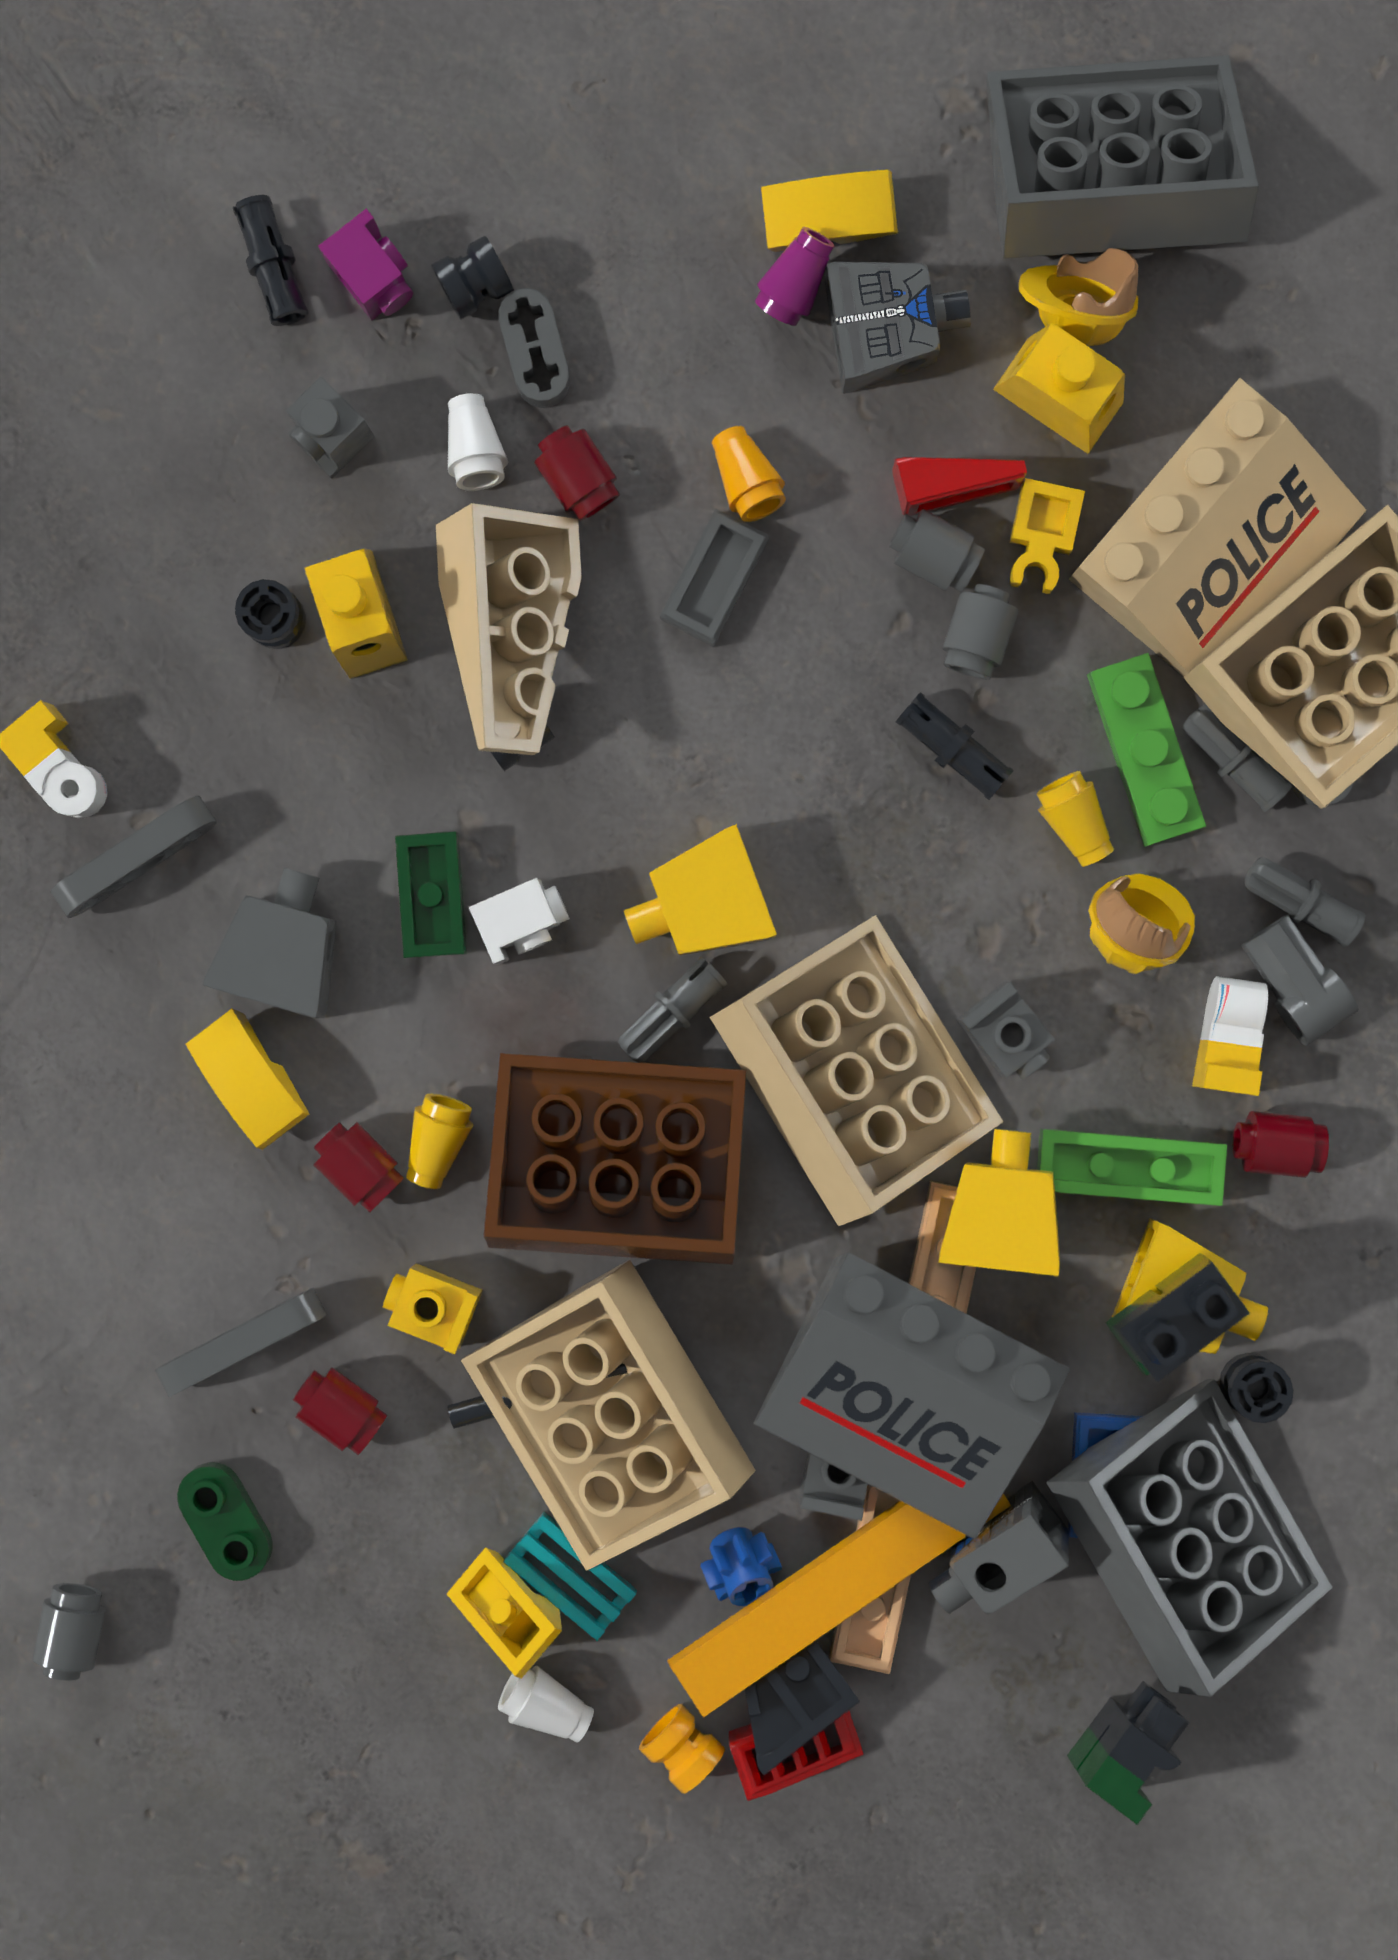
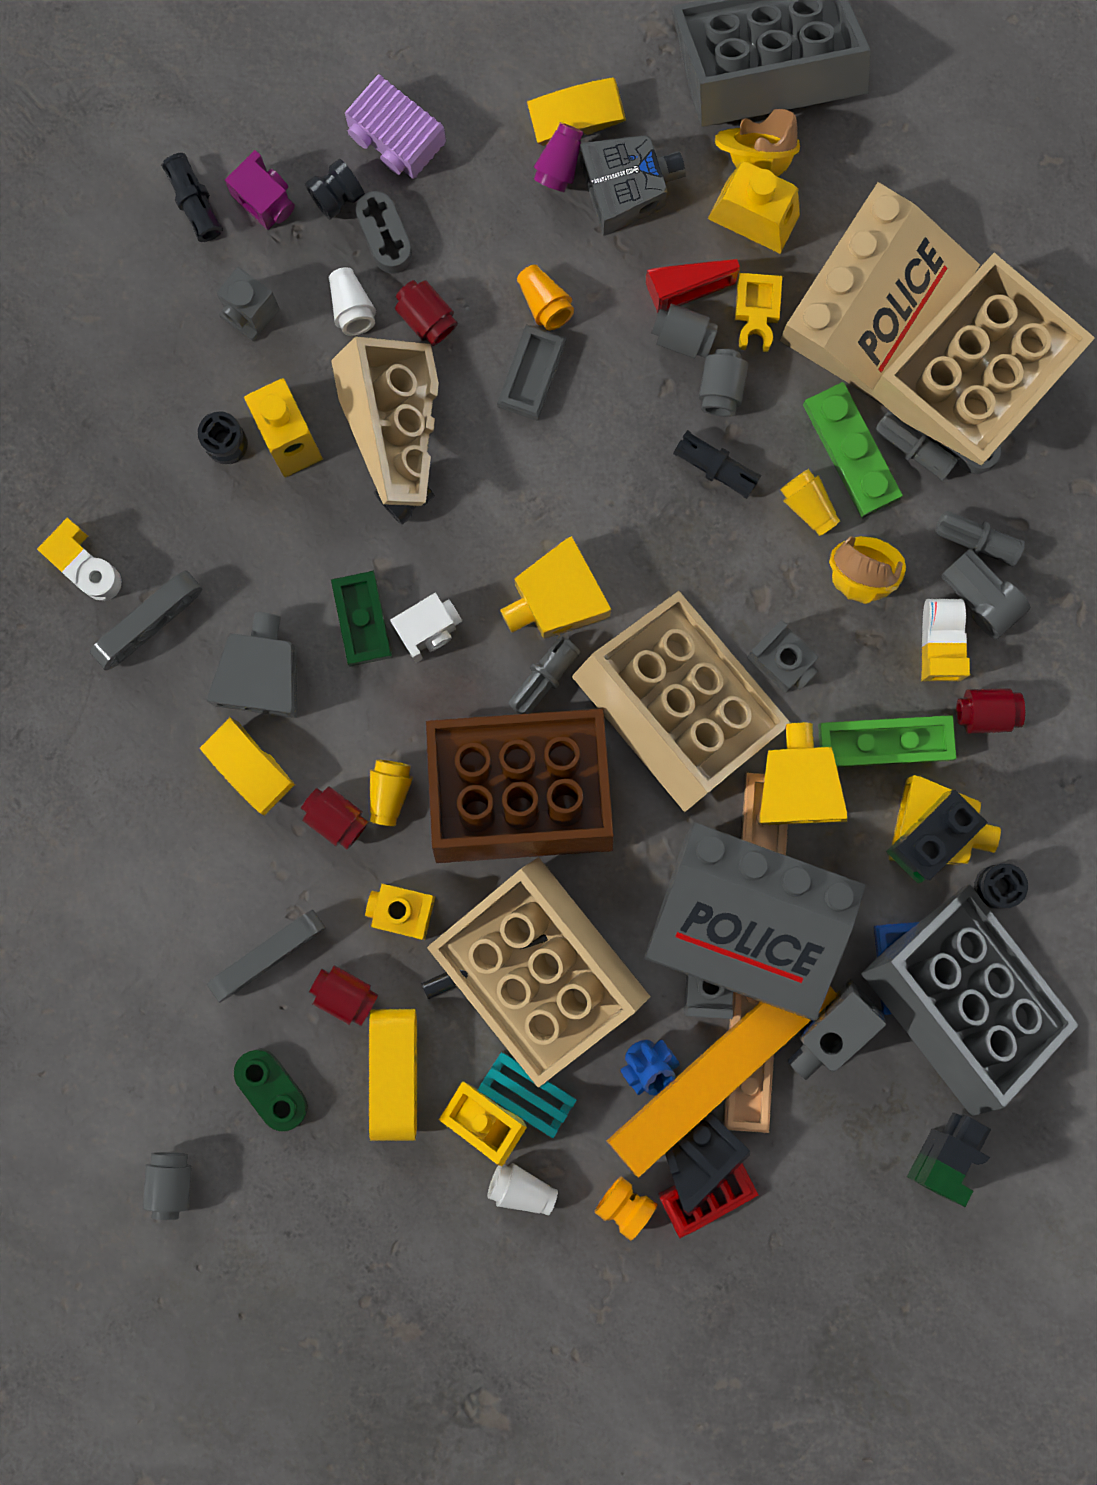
camera: 10 degrees left, 5 degrees down
(392, 1526) = (393, 1075): none -> yellow beam
(568, 199) = (394, 127): none -> lavender brick

